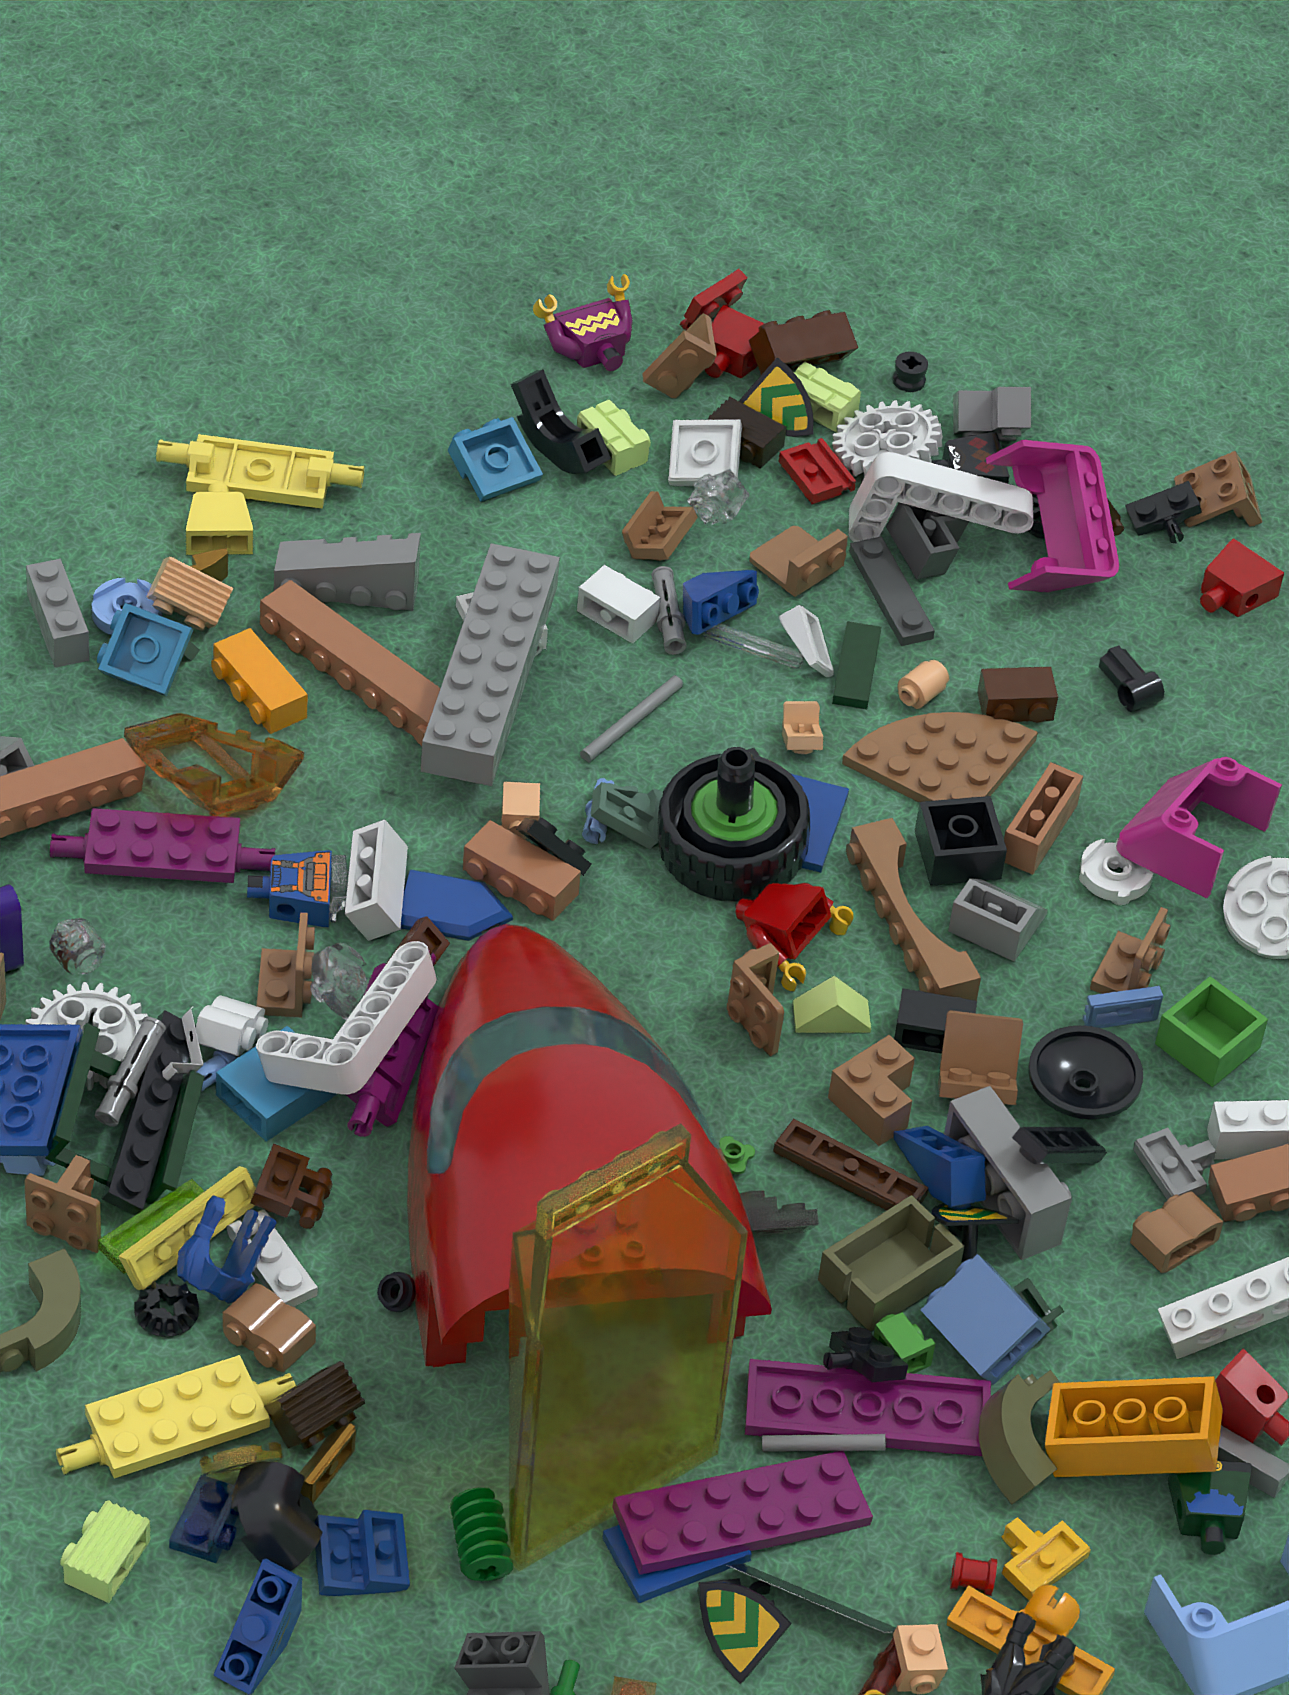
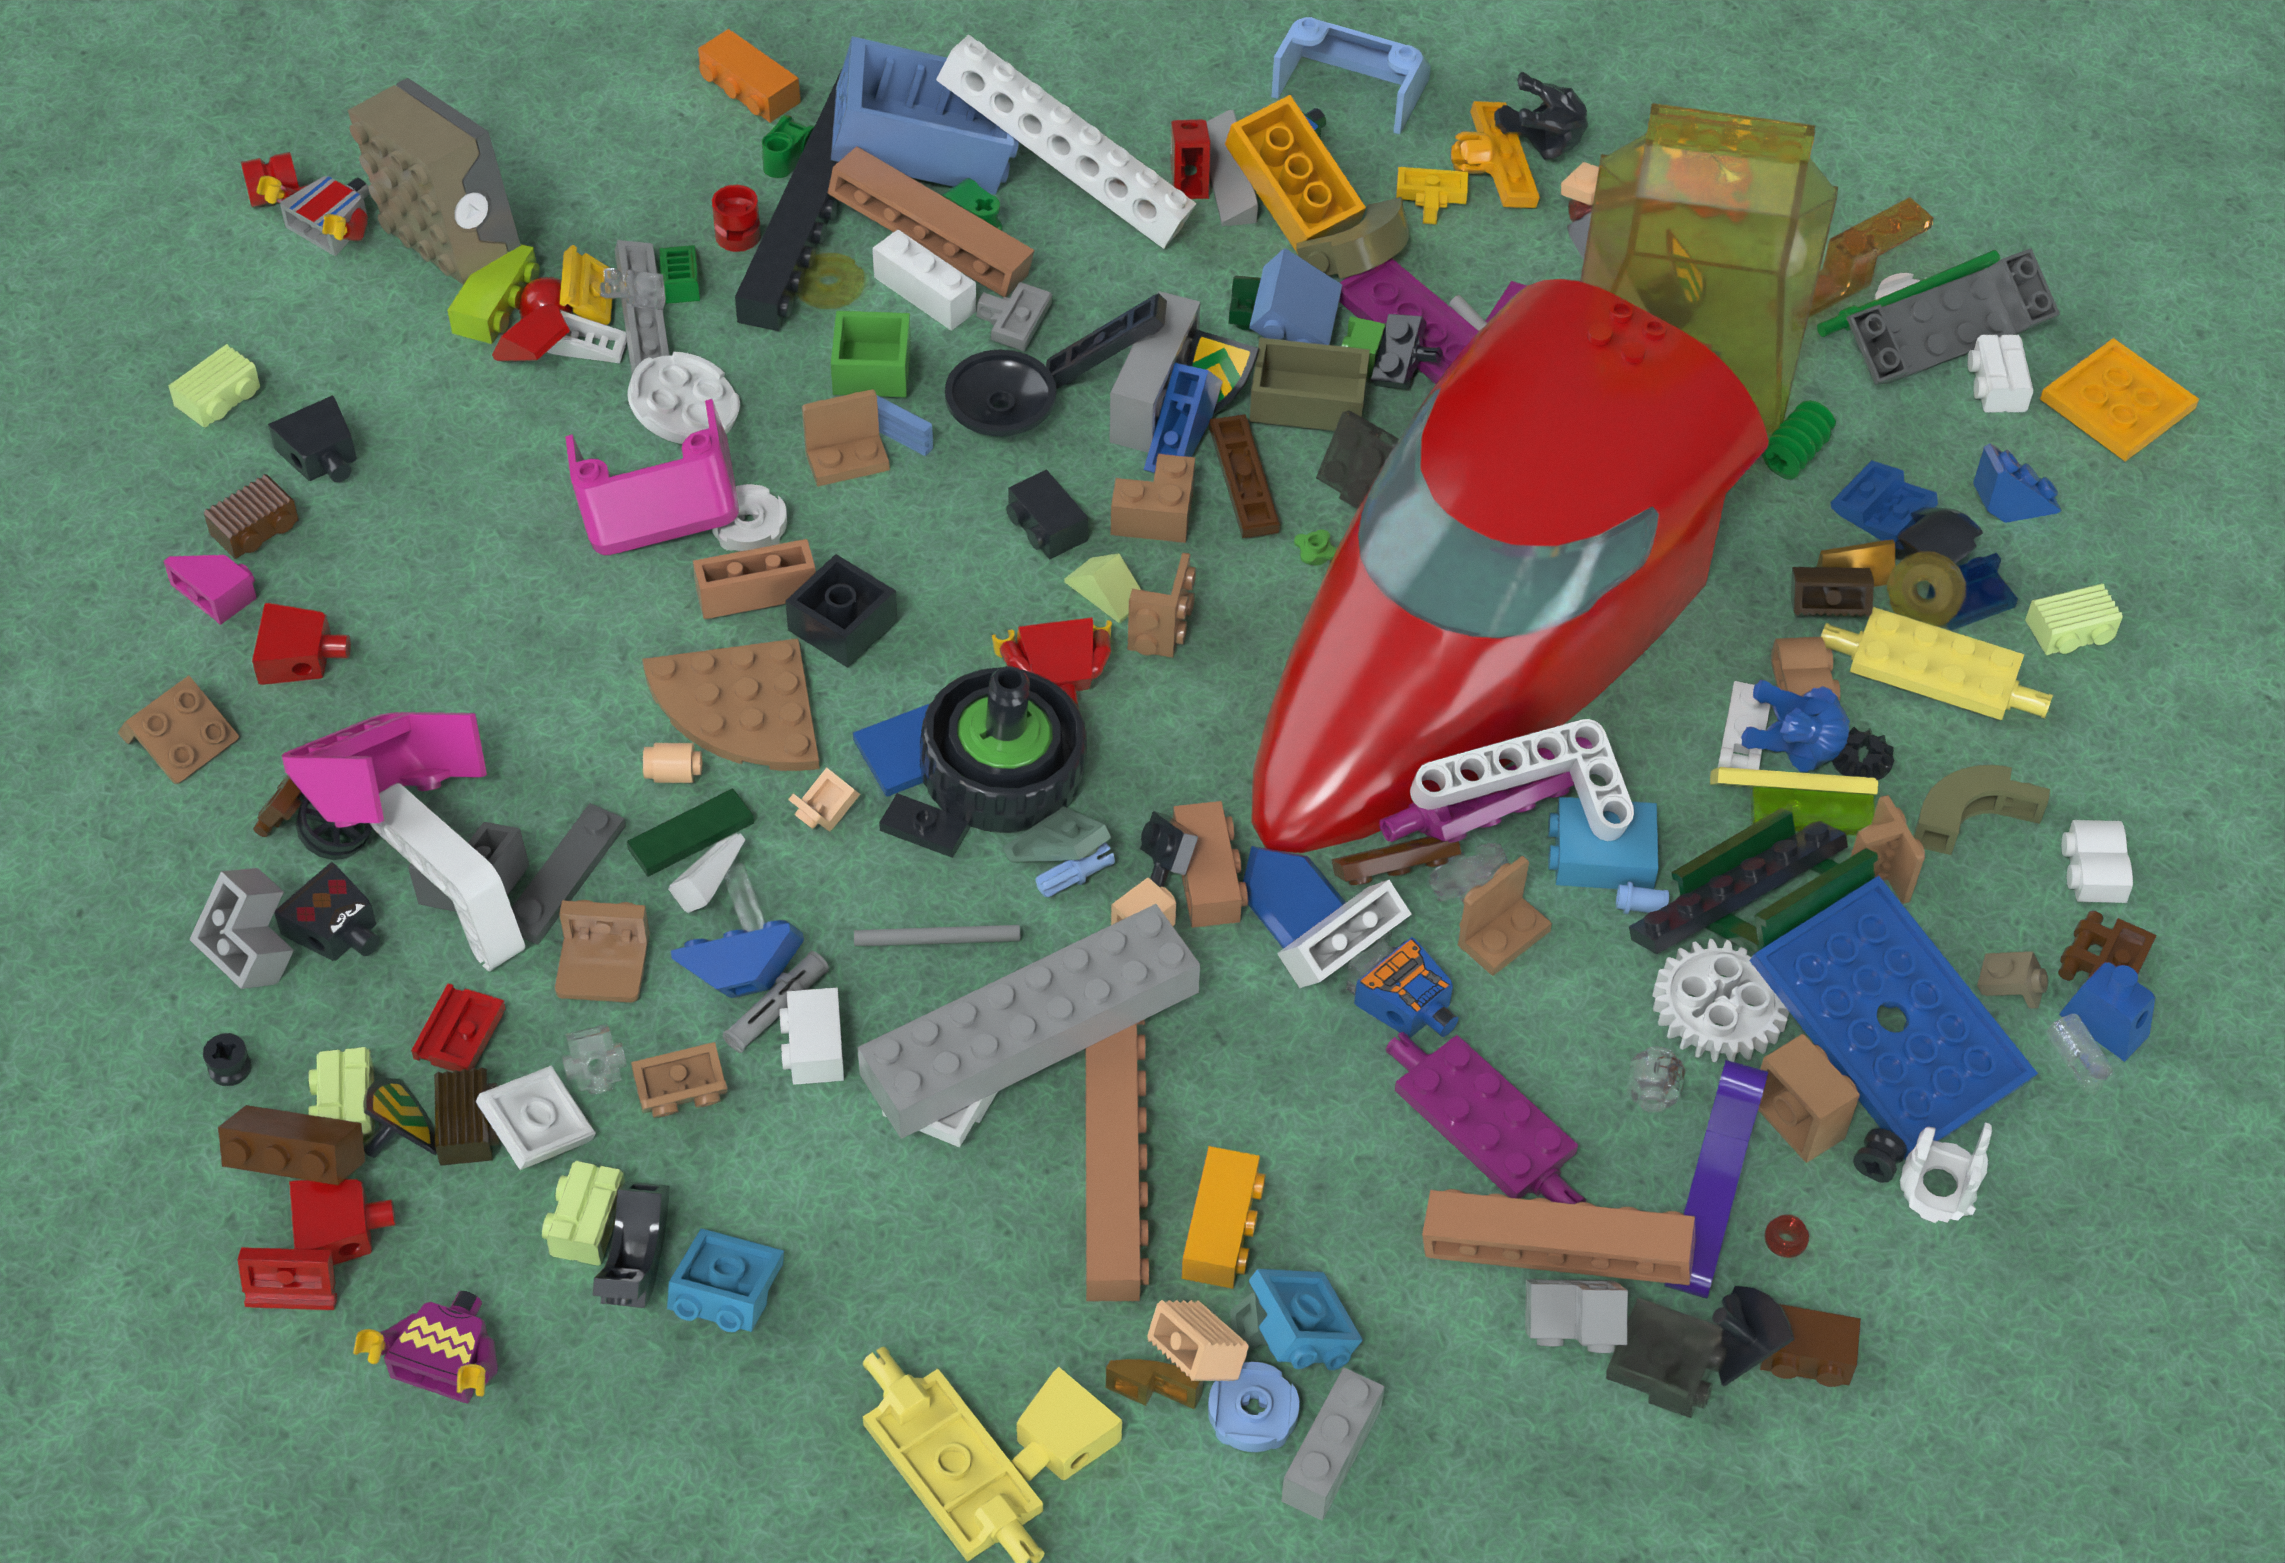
camera: 130 degrees left, 5 degrees up
(123, 1084) = (1730, 907): light grey pin -> none
(193, 1047) = (1672, 881): white piece -> none
(230, 1025) = (1602, 904): white brick -> none
(270, 764) = (1358, 1115): clear orange windscreen -> none
(280, 1182) = (1683, 754): reddish brown plate -> none
(353, 571) = (1013, 1254): light grey wedge -> none
(389, 1289) = (1678, 634): black plate -> none
(683, 359) = (409, 1227): medium nougat bracket -> none
(884, 430) = (397, 980): white gear -> none
(941, 970) = (911, 658): medium nougat arch -> none
(974, 1573) = (1488, 209): red bush -> none
(980, 1054) = (1071, 454): medium nougat bracket -> none
(994, 918) = (892, 541): light grey slope -> none
(1018, 693) = (614, 693): reddish brown brick -> none
(1133, 685) = (509, 633): black piece -> none
(1164, 511) = (246, 747): black plate -> none
(1175, 1231) = (1080, 276): medium nougat brick -> none

